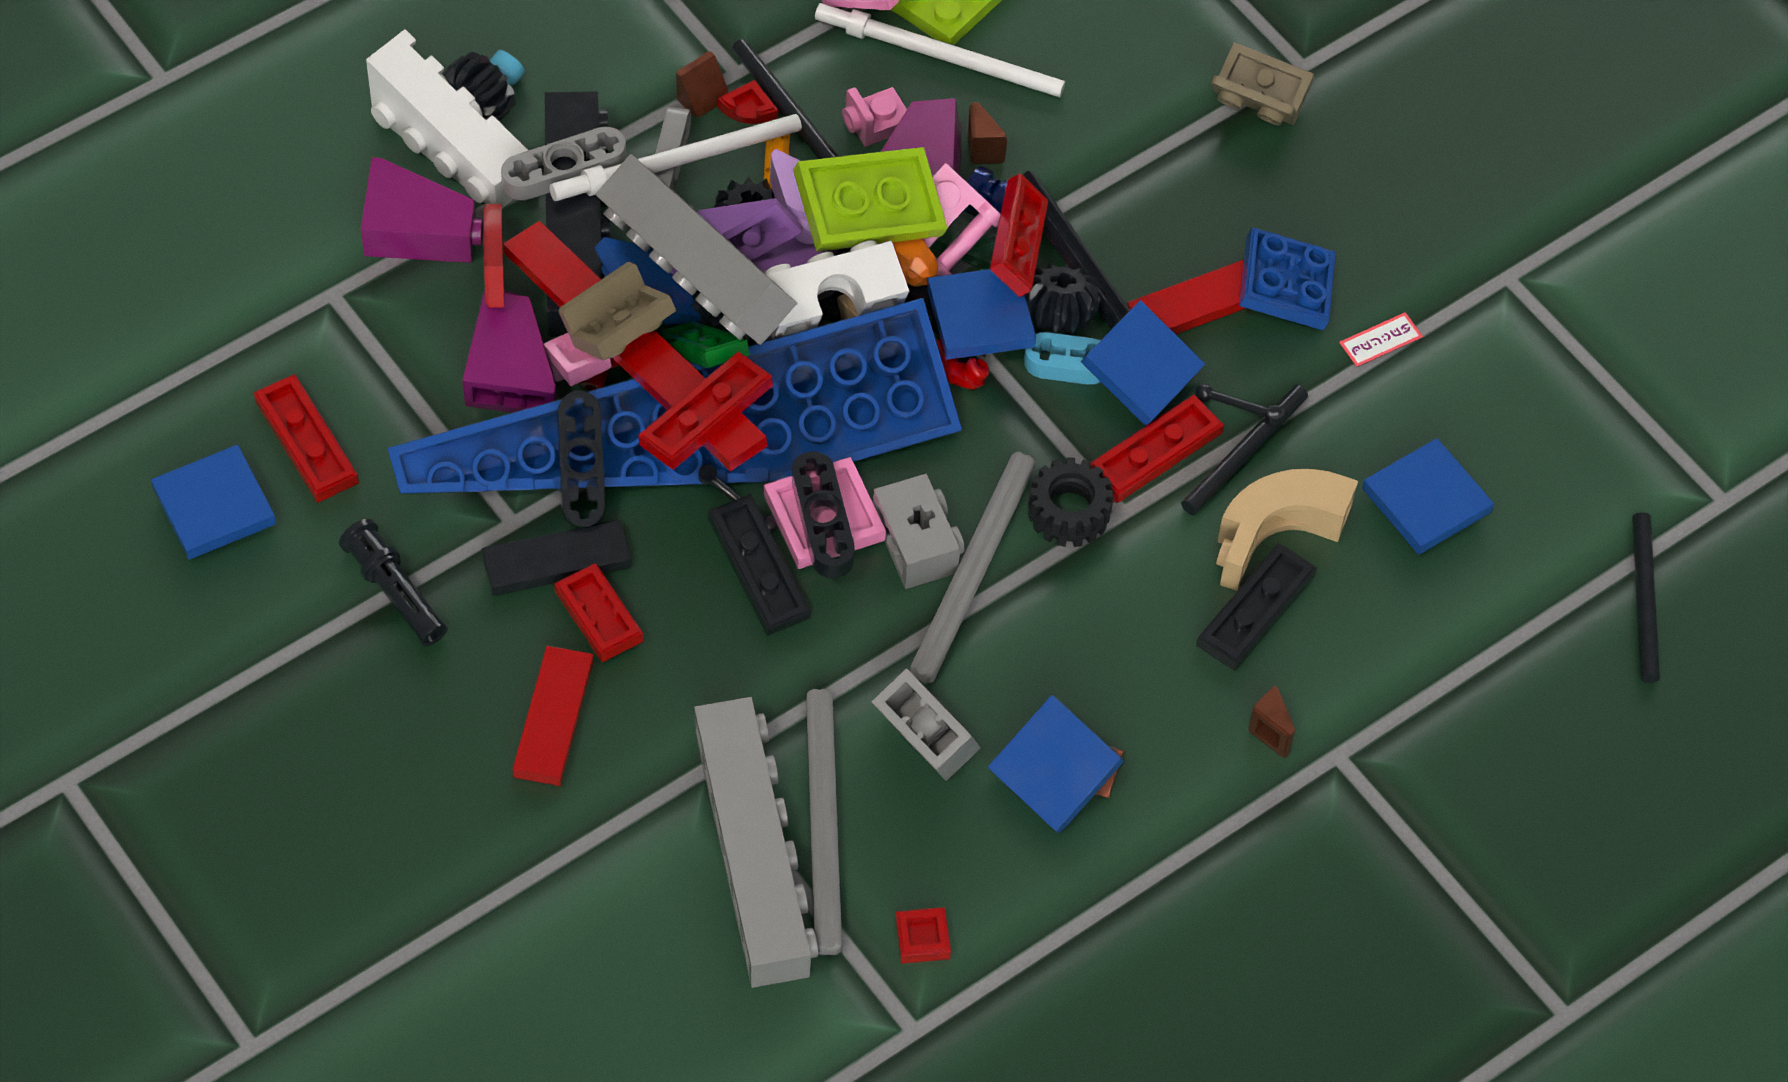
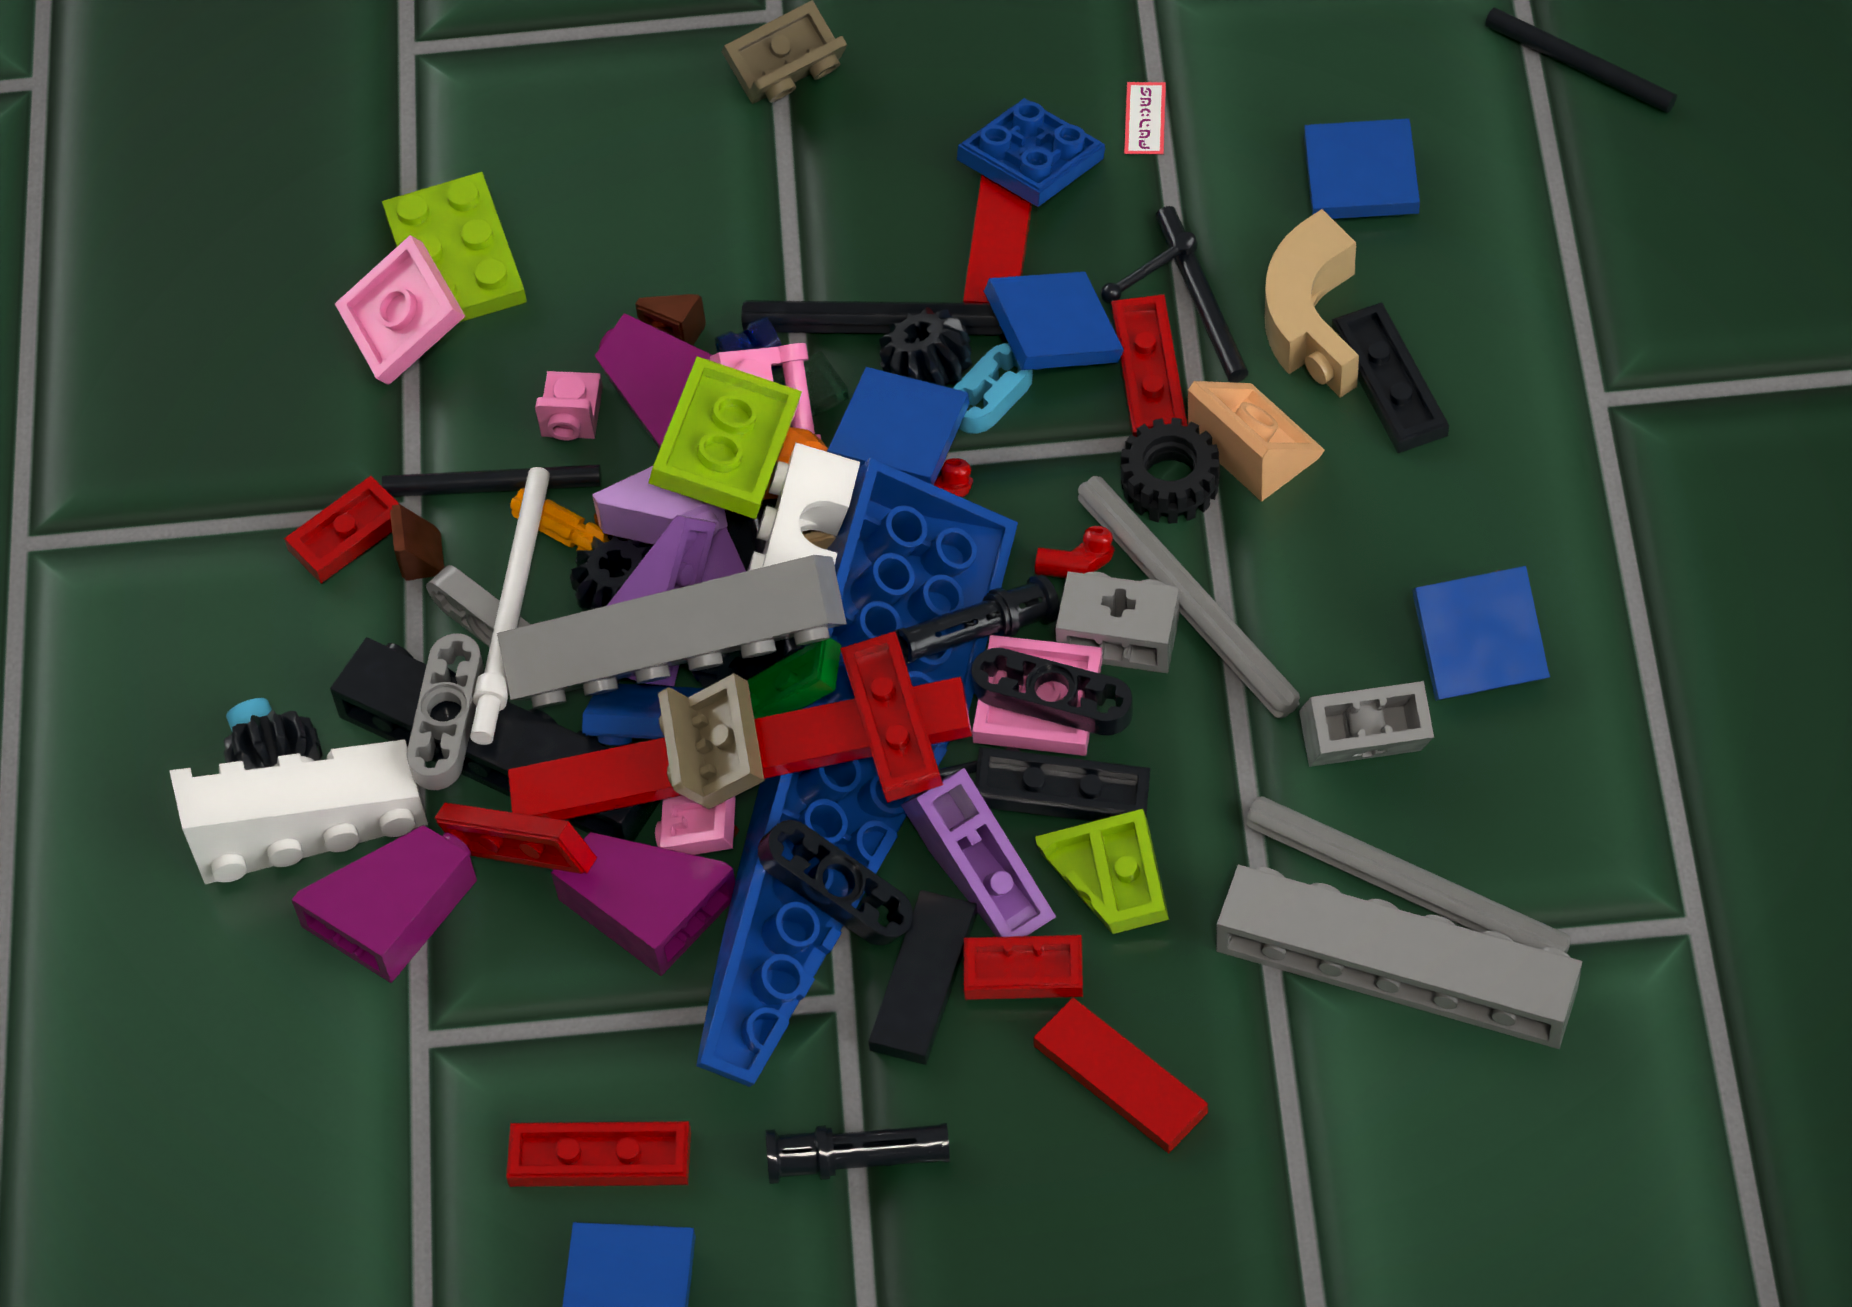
camera: 50 degrees left, 0 degrees up
(666, 539) = (978, 856): none -> medium lavender slope
(684, 38) = (343, 530): none -> red plate
(711, 628) = (1110, 869): none -> lime wing
(748, 105) = (467, 515): red tile -> none
(803, 407) = (996, 615): none -> black pin
(860, 25) = (444, 361): white bar -> none
(922, 935) = (1593, 859): red tile -> none
(965, 489) = (1086, 557): none -> red arm
(1019, 235) = (838, 340): red tile -> none
(1139, 537) = (1251, 435): none -> light nougat slope
(1272, 723) = (1541, 426): copper slope -> none

